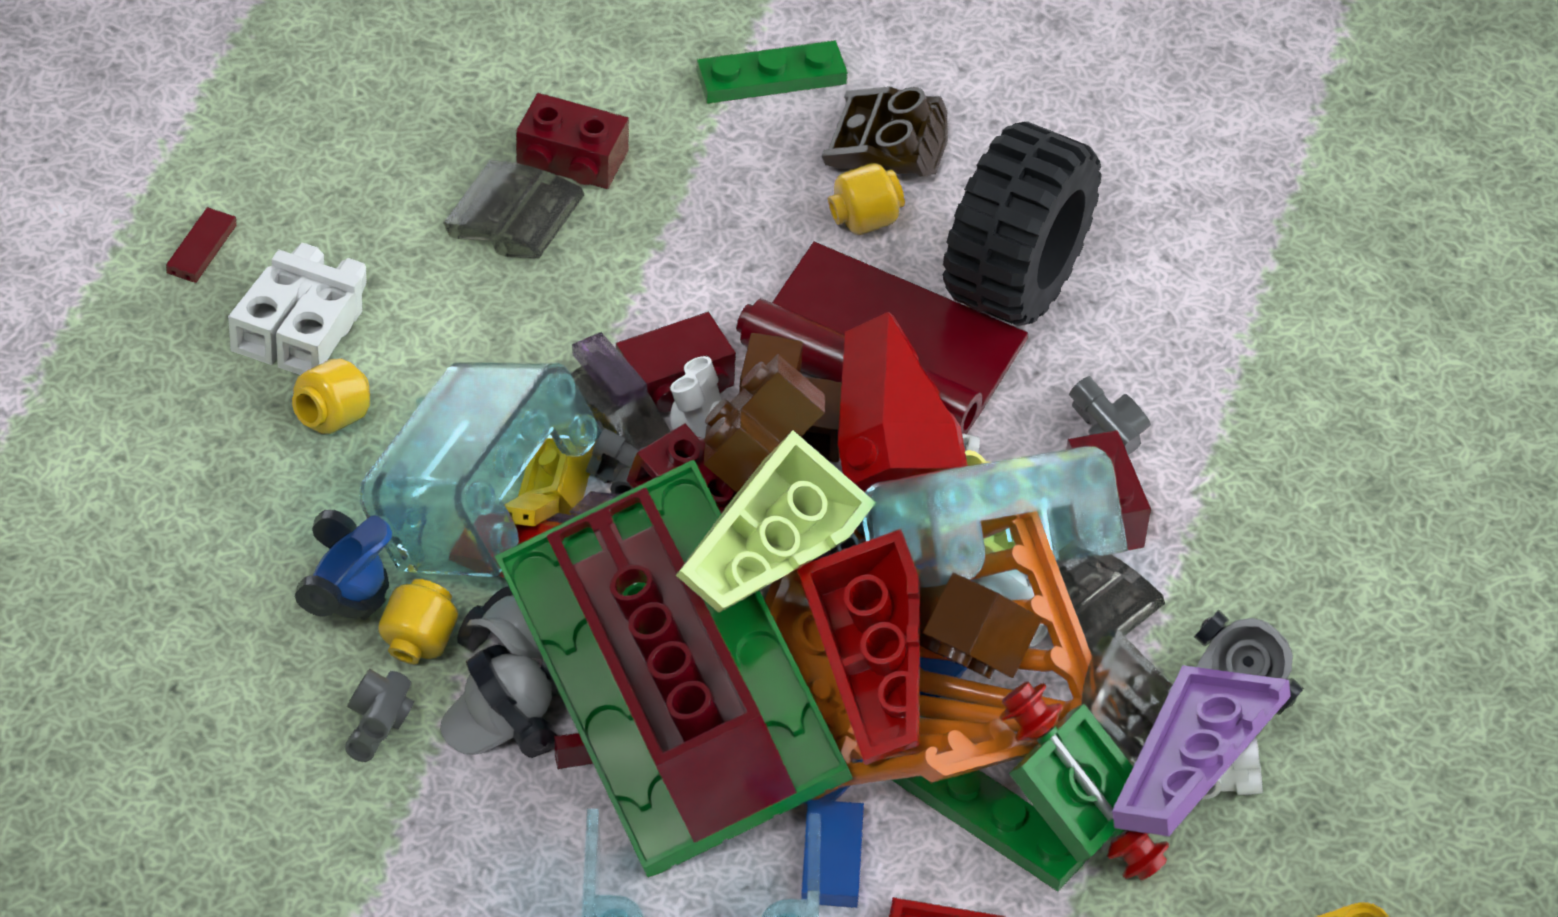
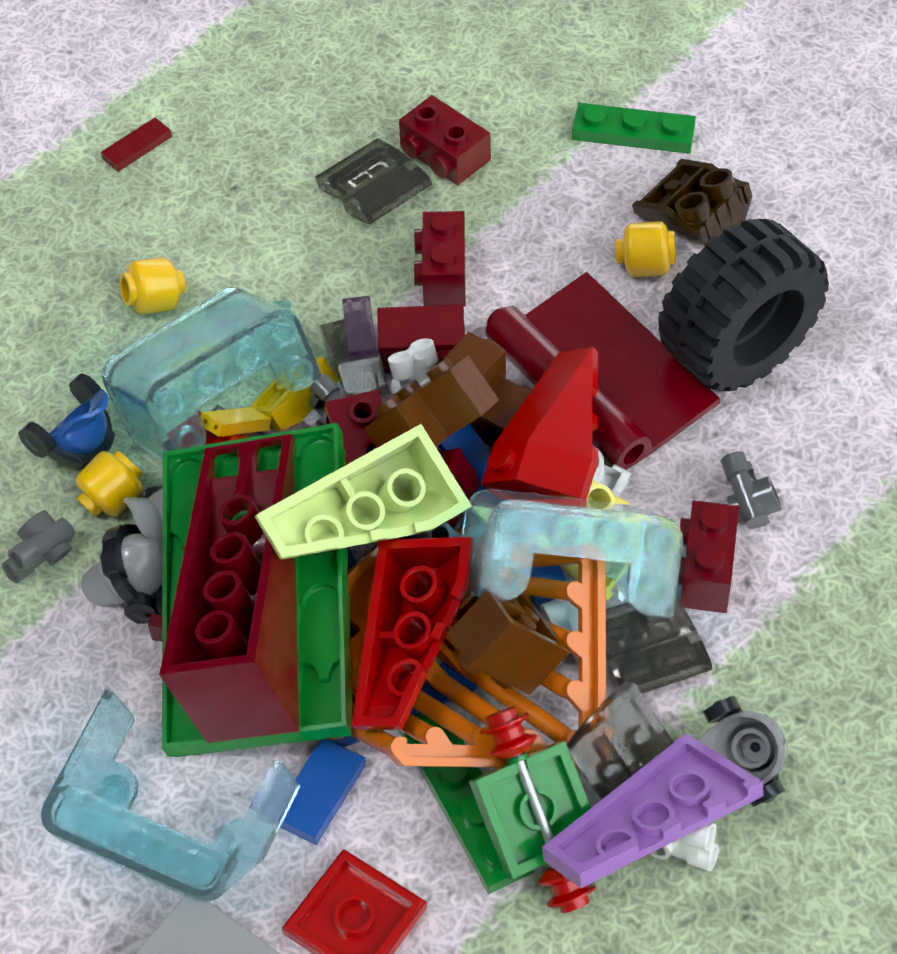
camera: 30 degrees right, 5 degrees up
(298, 309) = (169, 211): white hips -> none
(650, 270) = (443, 258): none -> dark red brick

